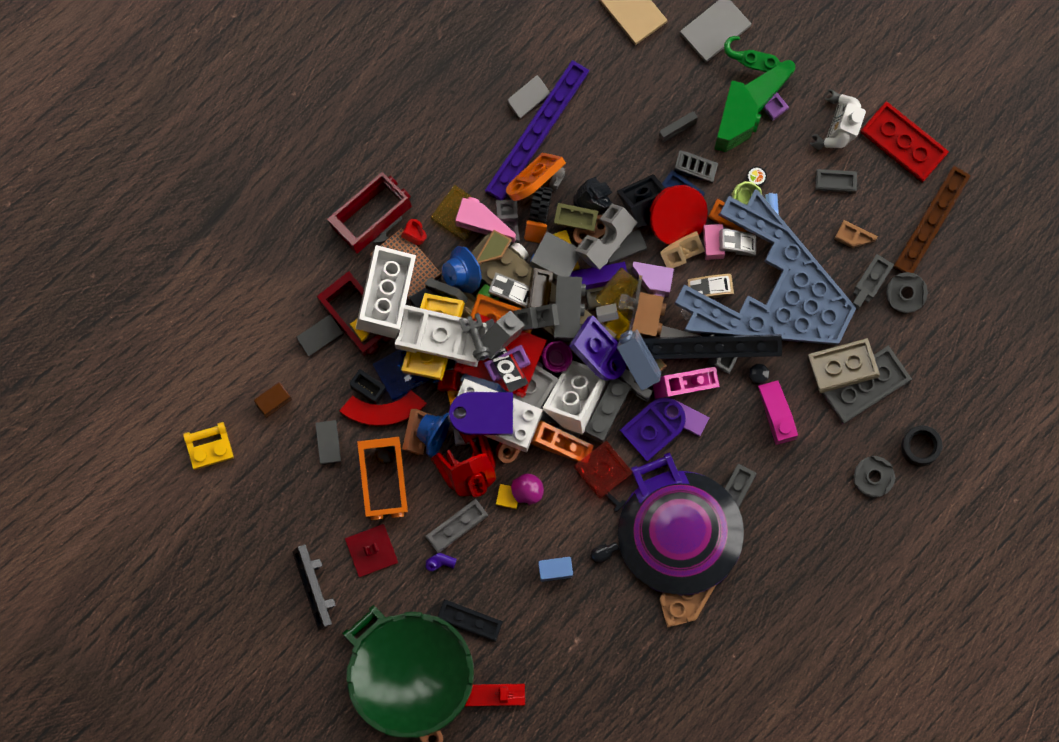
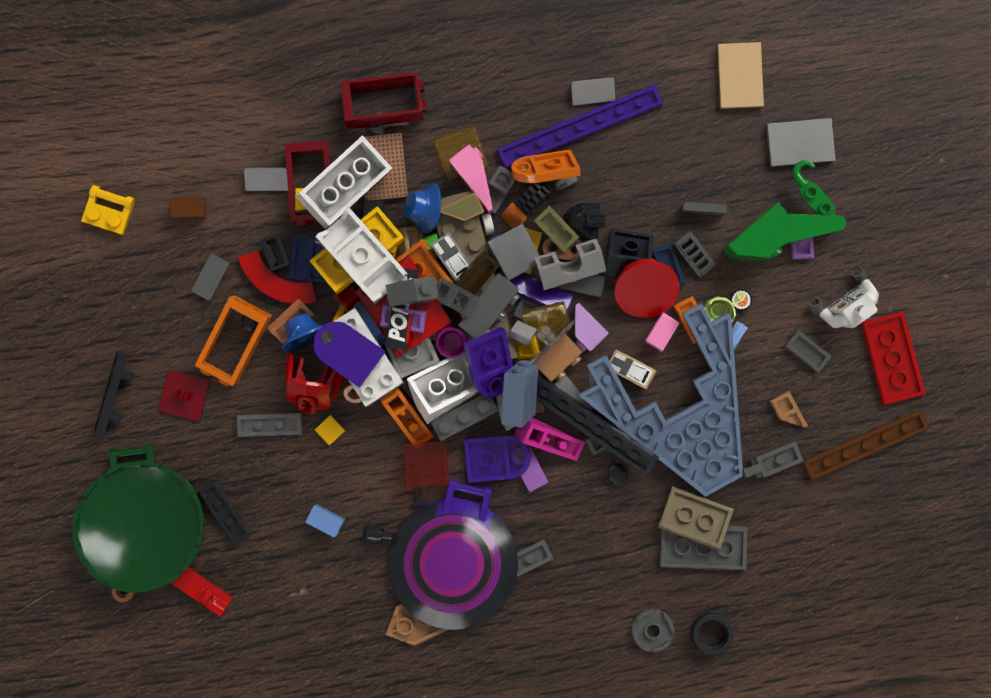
camera: 35 degrees right, 10 degrees up
(413, 232) = (409, 144): red tile -> none
(439, 560) = (233, 443): dark purple arm -> none
(445, 290) = (399, 216): dark grey tile -> none
(481, 352) = (382, 297): dark grey hinge -> none
(527, 489) = (349, 436): magenta hair -> none
(680, 250) = (628, 319): tan slope -> none
(738, 242) = (681, 347): slope -> none
(778, 413) = (610, 518): dark pink slope -> none
(918, 288) = (803, 481): dark grey tile -> none

